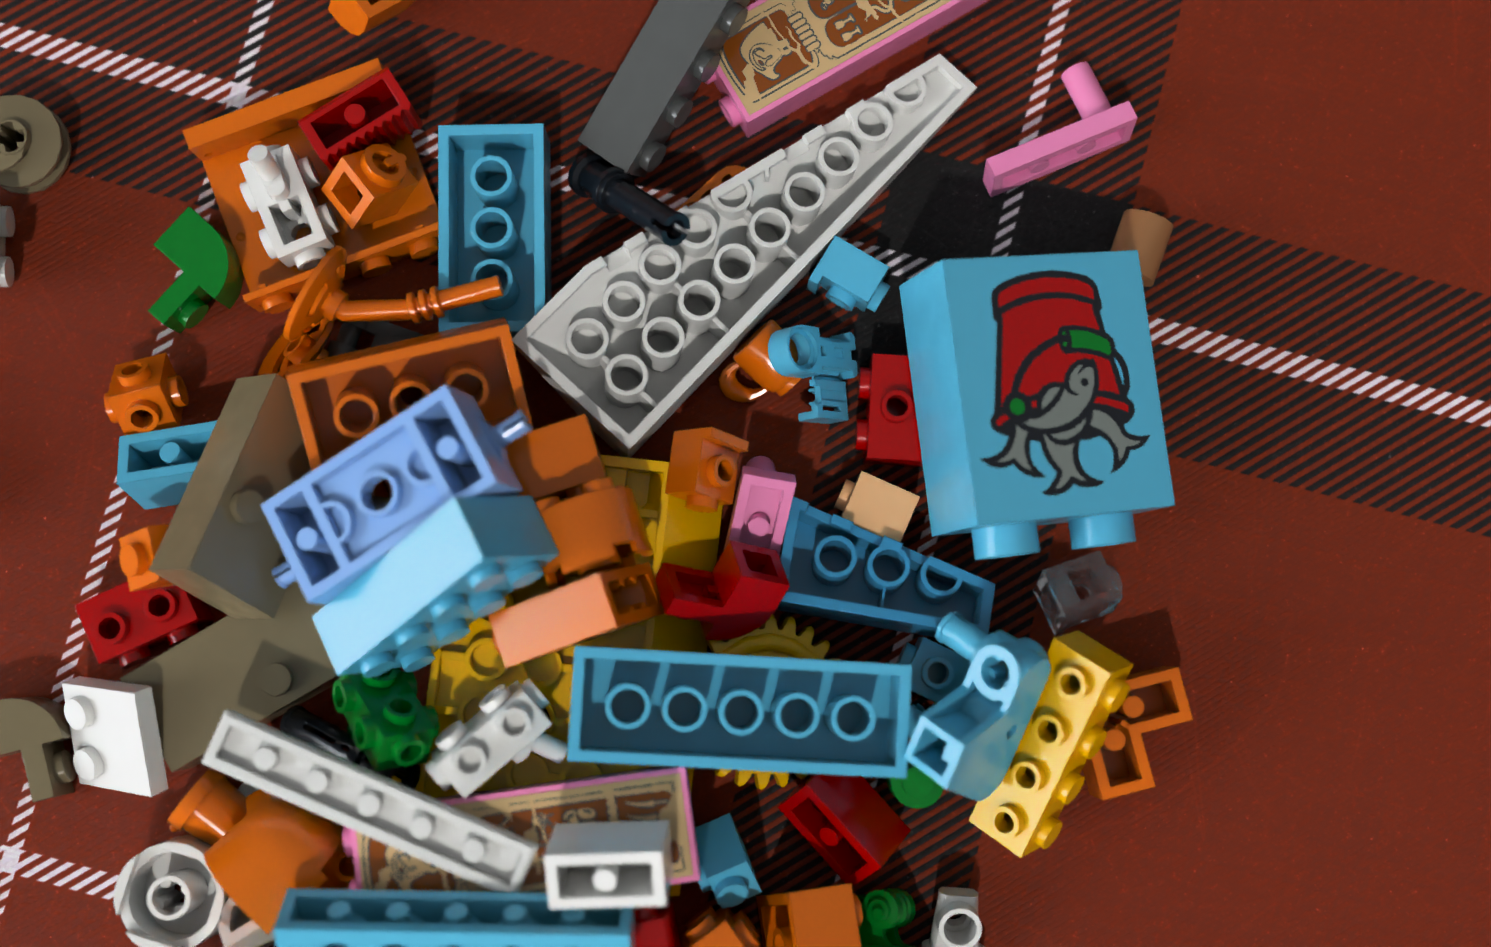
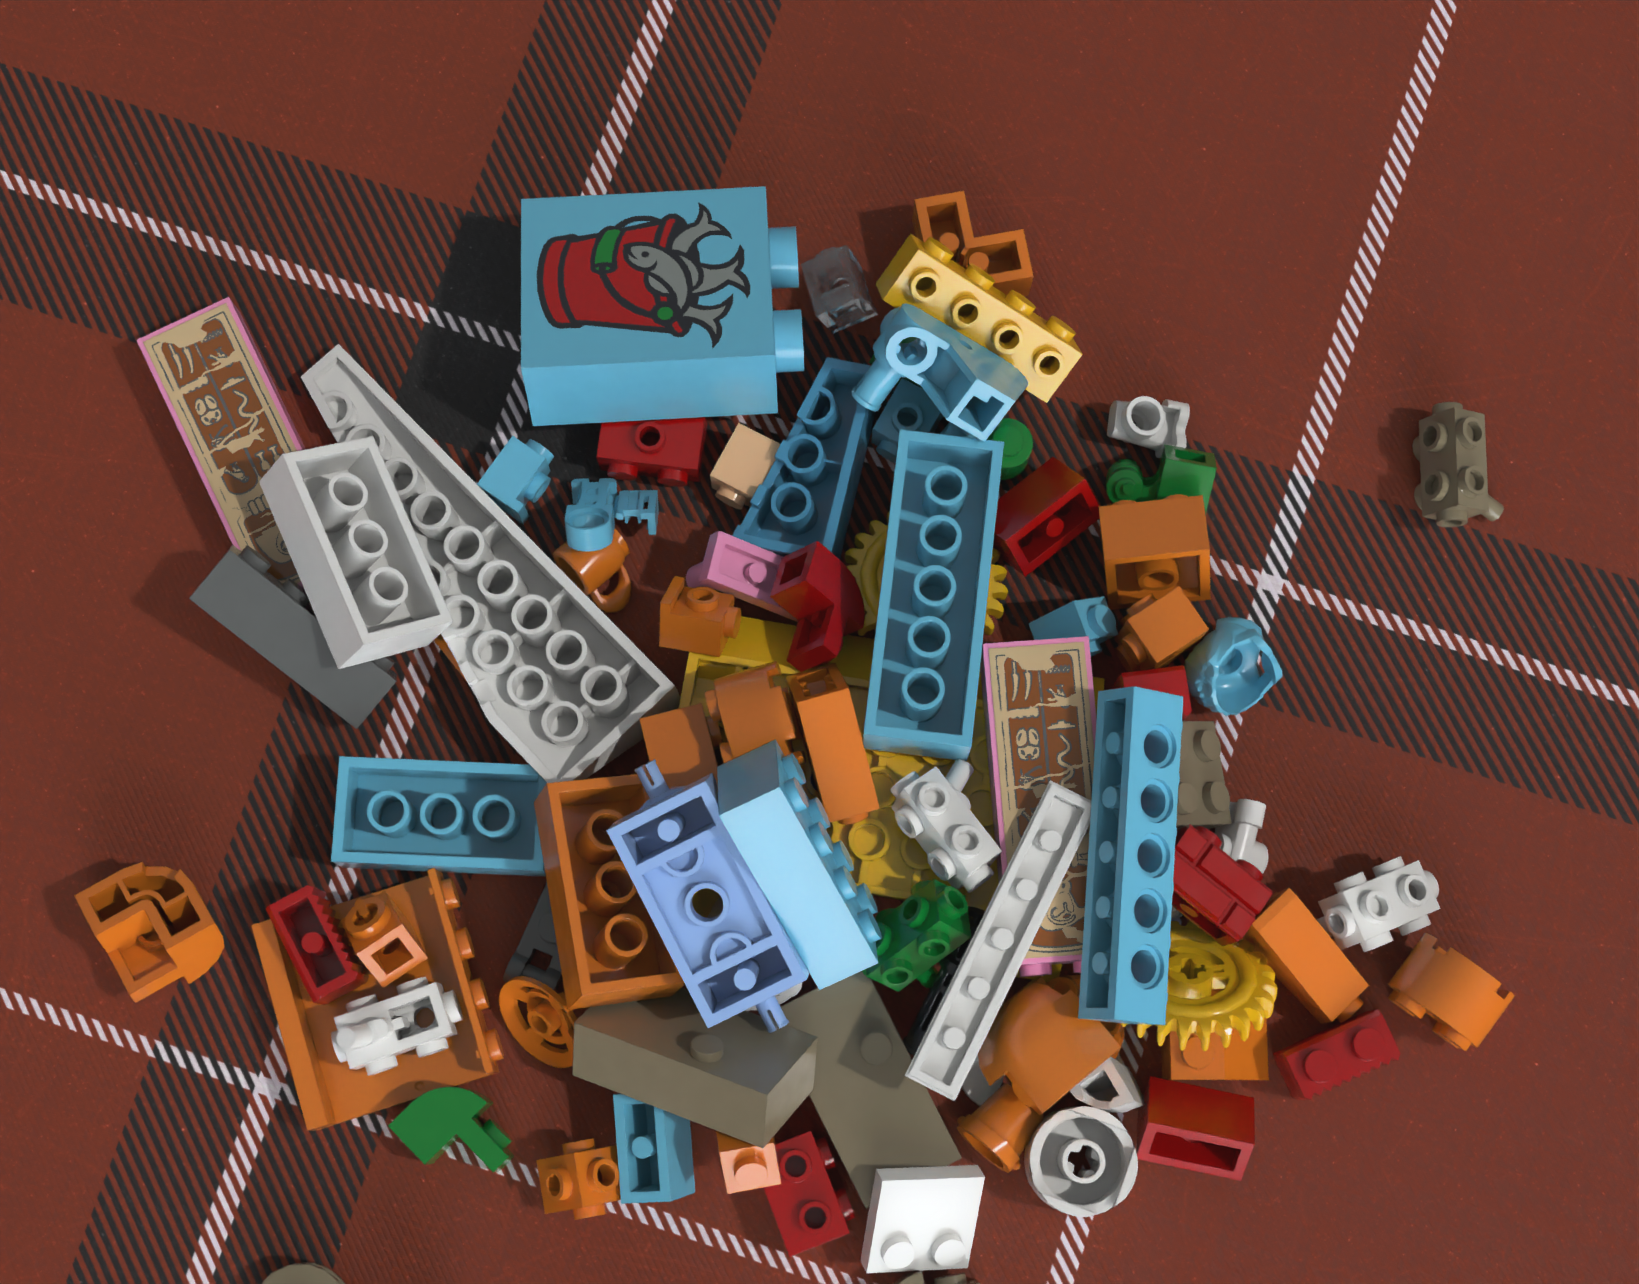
camera: 85 degrees left, 5 degrees down
(324, 298) = (503, 974): orange dish -> none
(609, 865) = (1069, 707): white brick -> none
(616, 193) = (413, 693): black pin -> none
(749, 115) = (355, 551): none -> white brick
(1096, 132) = (393, 232): bright pink piece -> none
(1147, 234) = (501, 202): medium nougat brick -> none

